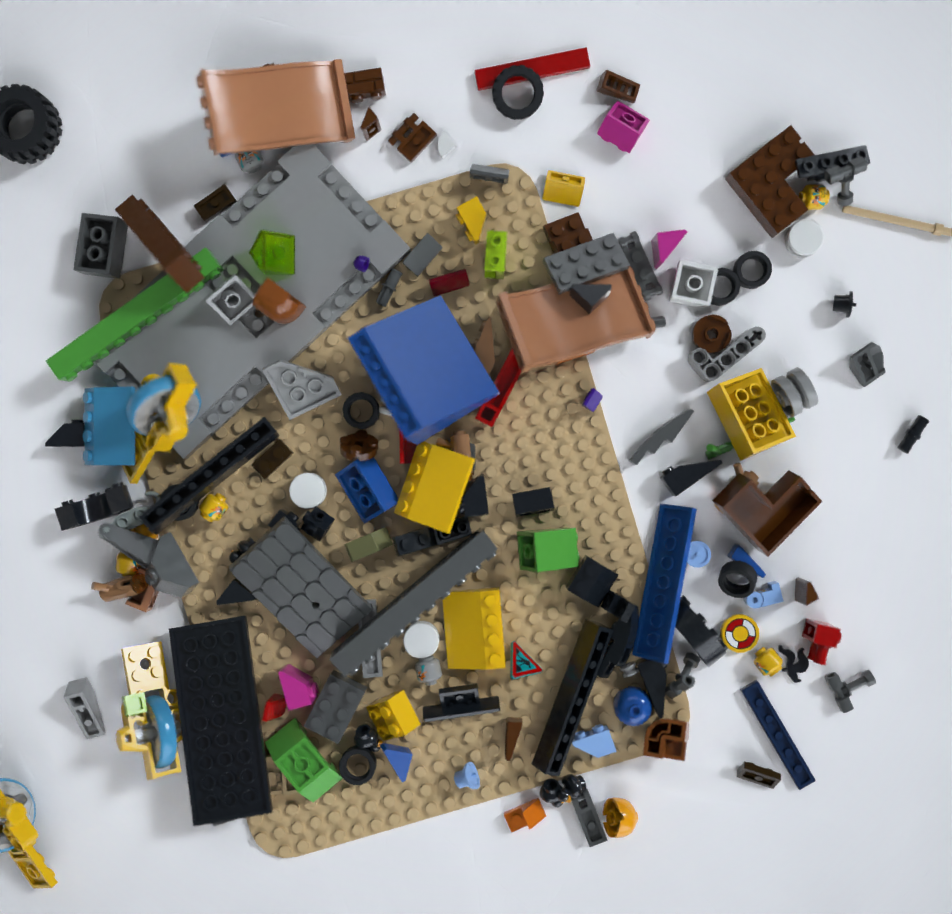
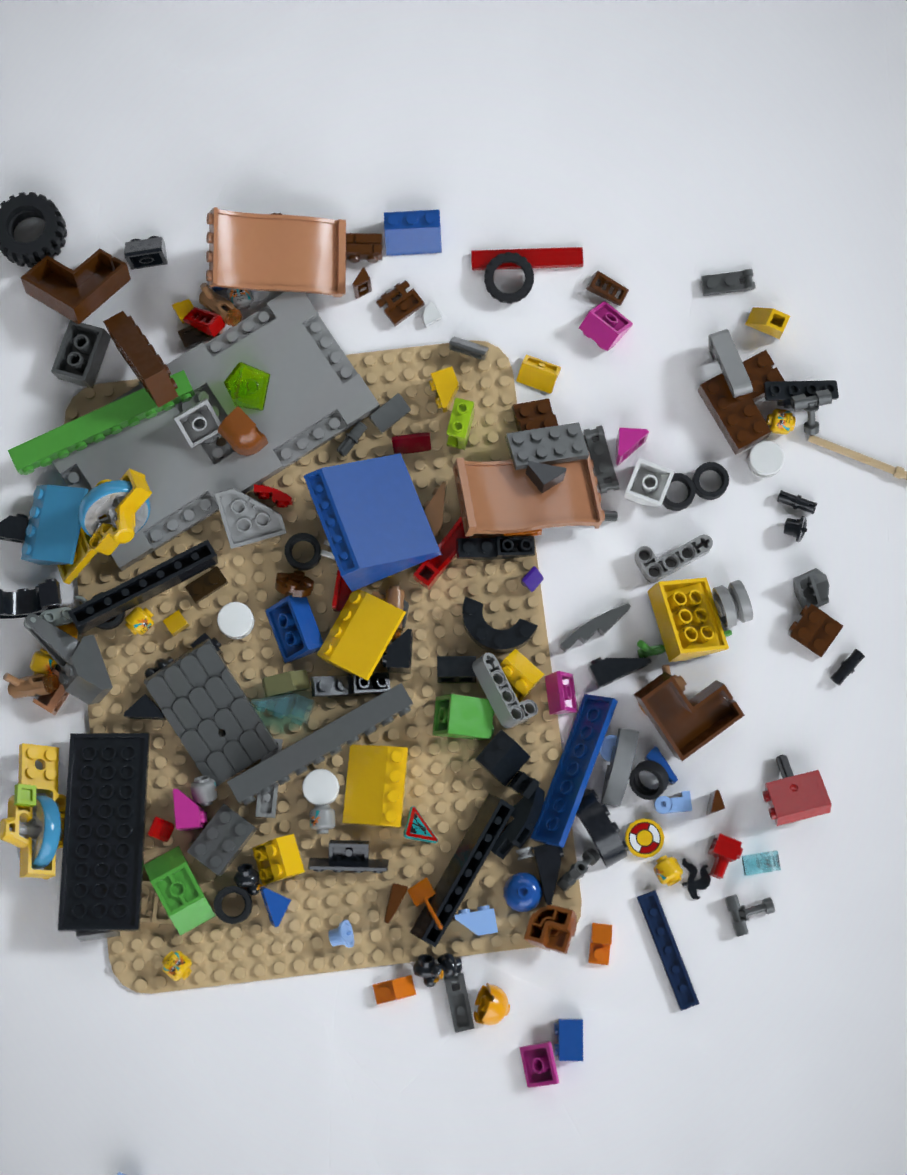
camera: 15 degrees right, 10 degrees down
(84, 181) = (76, 291): none -> reddish brown piece
(144, 128) = (145, 252): none -> black slope
(197, 182) = (182, 308): none -> yellow slope
(220, 191) = (206, 321): none -> red slope
(230, 172) = (219, 305): none -> medium nougat piece
(250, 502) = (176, 623): none -> yellow slope
(309, 663) = (204, 790): none -> light grey head
(315, 831) = (177, 965): none -> yellow head
(317, 523) = (238, 653): black brick -> none
(327, 360) = (278, 497): none -> red slope
(361, 263) = (329, 410): dark purple hinge -> none
(378, 566) = (291, 706): none -> clear light blue slope
(412, 60) = (412, 232): none -> slope
(535, 725) = (421, 893): none -> orange piece
(551, 374) = (495, 548): none -> black slope
(564, 467) = (493, 639): none -> black brick
(580, 520) = (500, 693): none -> light grey beam
(592, 501) = (520, 674): none -> yellow slope
(638, 508) = (561, 693): none -> dark pink slope
(674, 862) = (539, 1064): none -> dark pink slope
(699, 835) = (569, 1039): none -> blue brick
(708, 571) = (620, 767): none -> dark grey slope
(713, 739) = (600, 943): none -> orange slope
(721, 328) = (660, 525): reddish brown plate -> none
(738, 60) = (727, 282): none -> dark grey plate
(748, 130) = (725, 352): none -> light grey beam
(758, 775) = (641, 987): dark brown plate -> none
(787, 94) = (768, 321): none -> yellow slope
(840, 276) = (797, 502): none -> black pin
(858, 639) = (761, 863): none -> clear light blue slope
(877, 403) = (815, 630): none -> reddish brown plate
(883, 571) = (796, 796): none -> red piece

